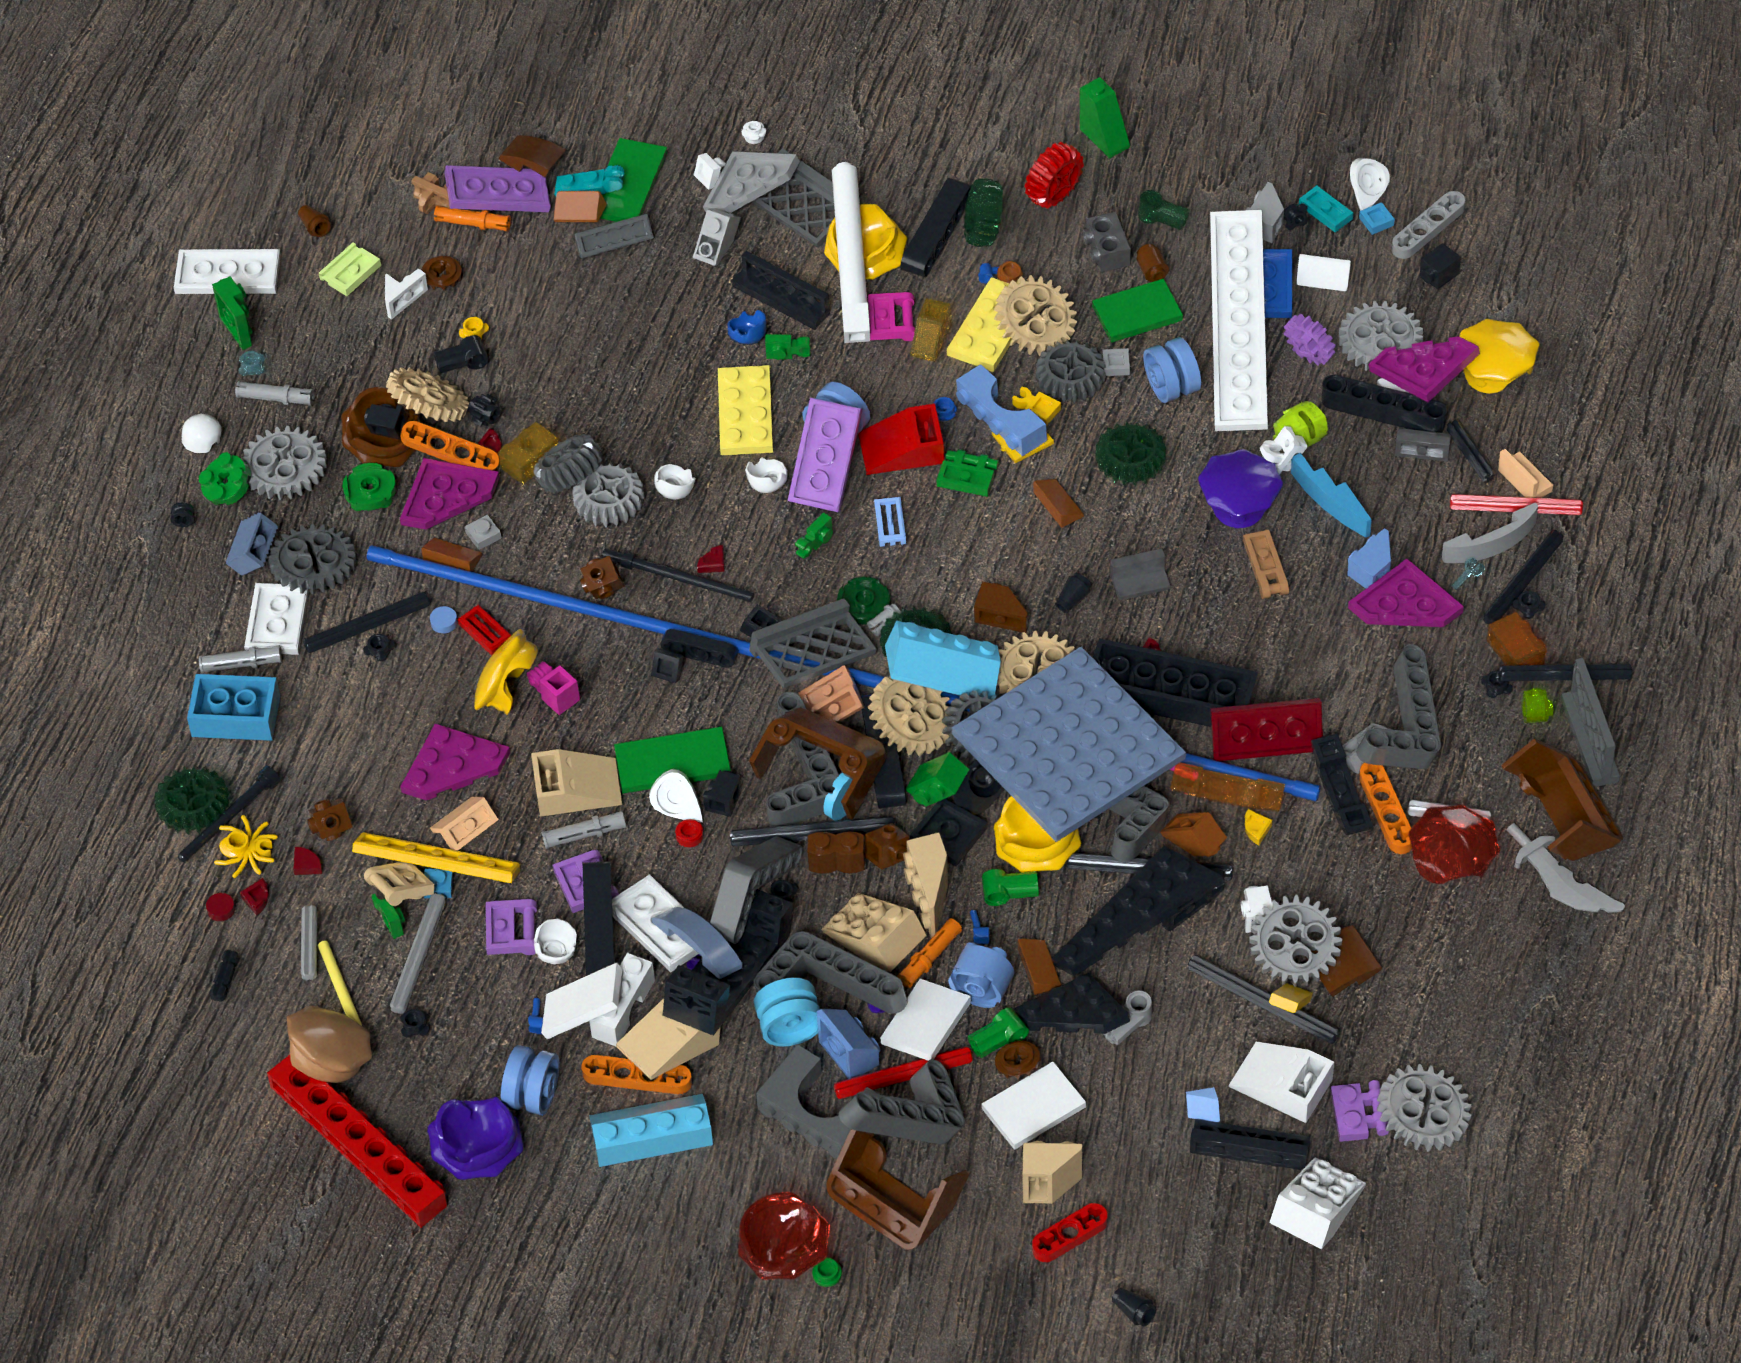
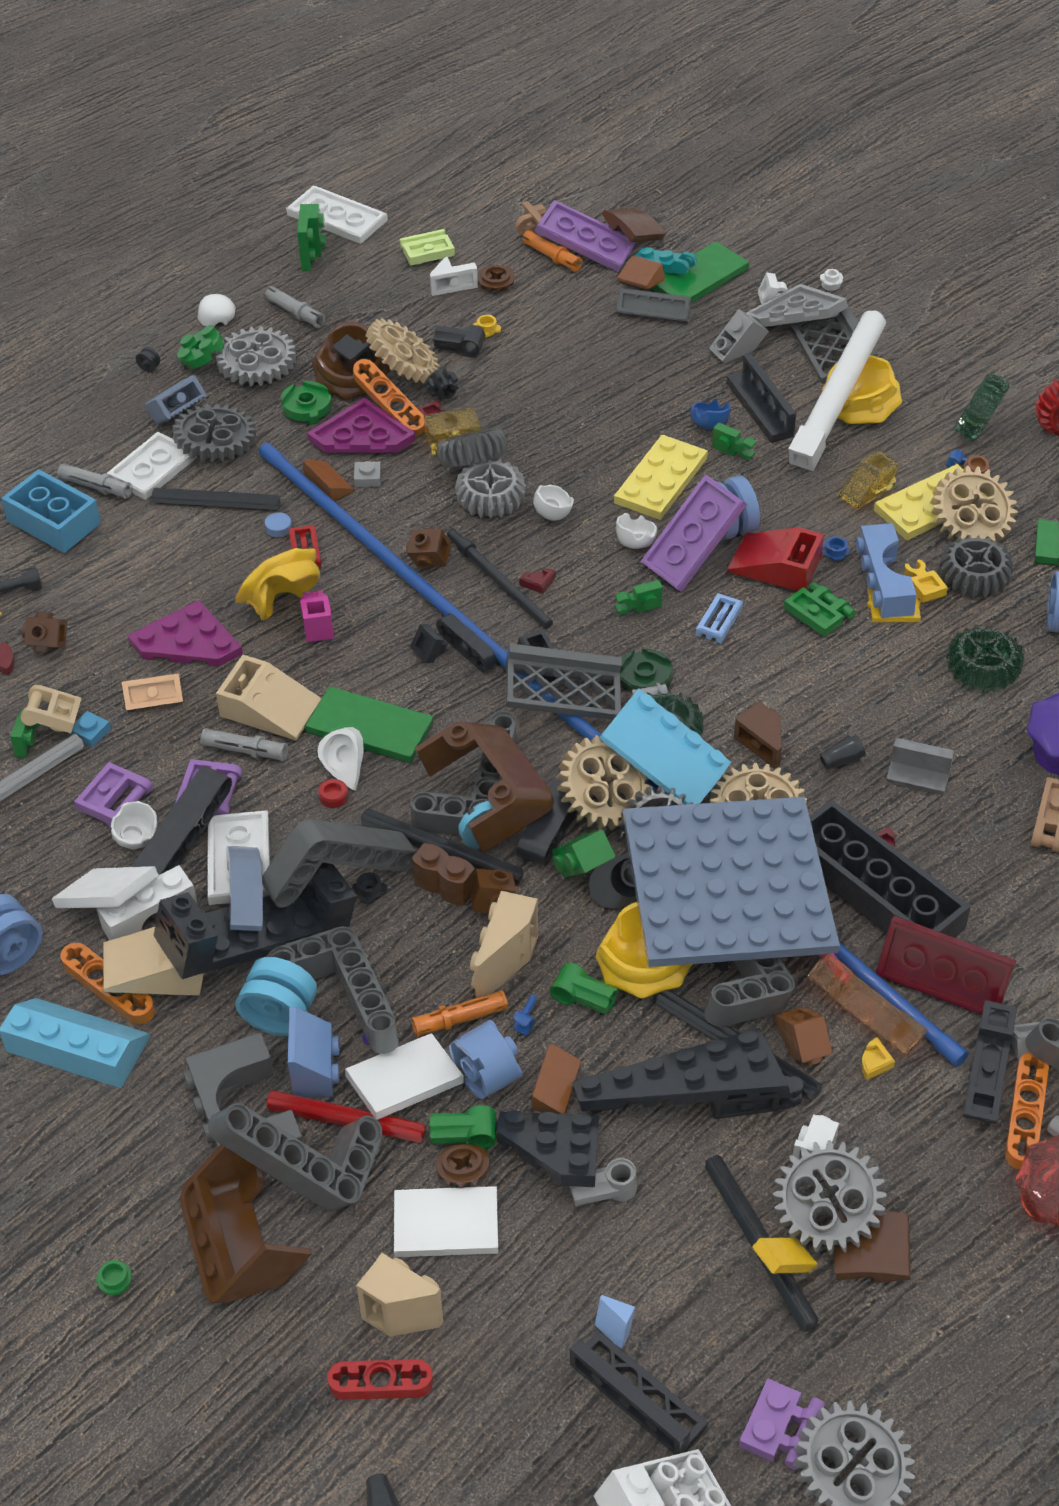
camera: 30 degrees right, 5 degrees down
(251, 363) = (296, 280): clear light blue plate -> none
(314, 221) = (429, 206): reddish brown cone -> none
(375, 642) = (208, 521): black plate -> none
(436, 857) = (105, 707): yellow tile -> none
(534, 1020) = (59, 884): blue hand -> none
(723, 793) = (387, 773): black brick -> none
(782, 1236) = (97, 1214): clear red piece -> none
(833, 696) = (548, 736): nougat slope -> none
(876, 930) = (425, 966): tan slope -> none
(883, 316) = (837, 452): dark pink plate -> none
(936, 228) = (931, 408): black beam -> none
(956, 828) = (566, 909): black plate -> none
(1057, 501) = (886, 669): dark orange slope -> none
(1116, 362) = (1025, 578): light grey plate -> none
(1284, 1078) = (721, 1342): white slope -> none

